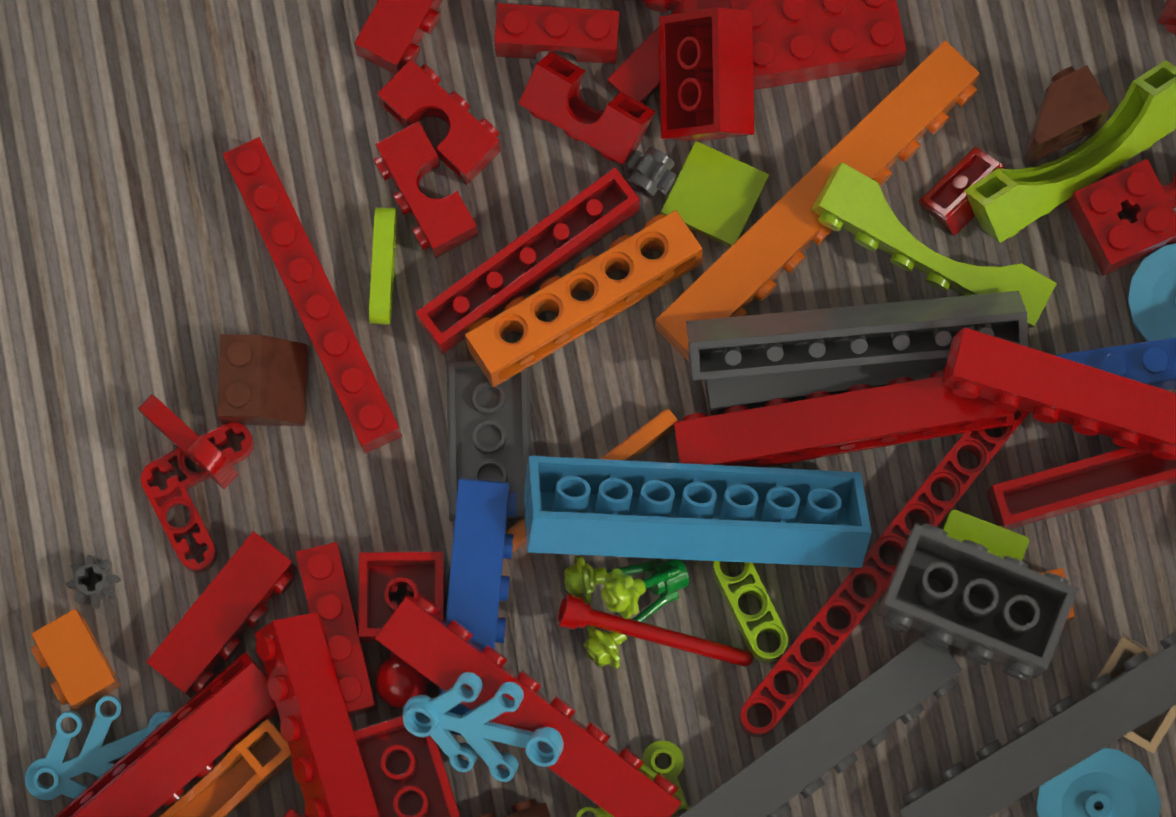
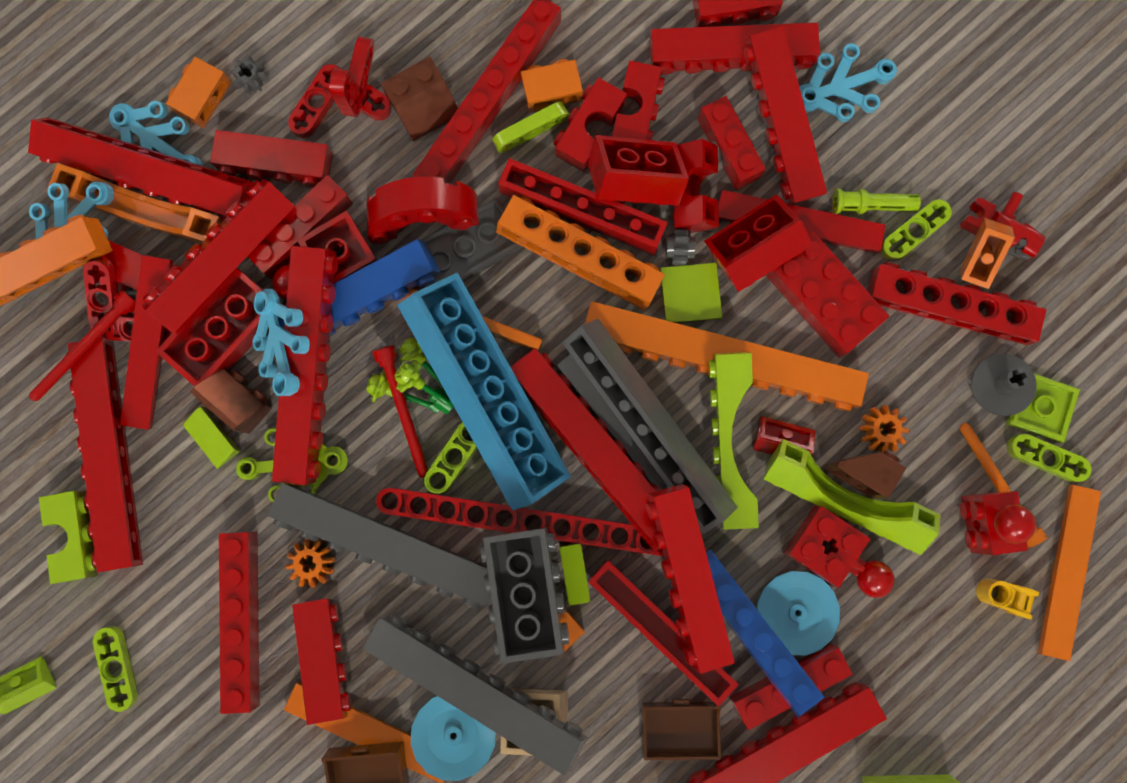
camera: 55 degrees right, 5 degrees up
(344, 208) = (551, 84): none -> orange brick
(402, 460) = (419, 200): none -> red brick
(527, 165) = (637, 170): none -> red brick
(1027, 50) = (894, 427): none -> orange gear

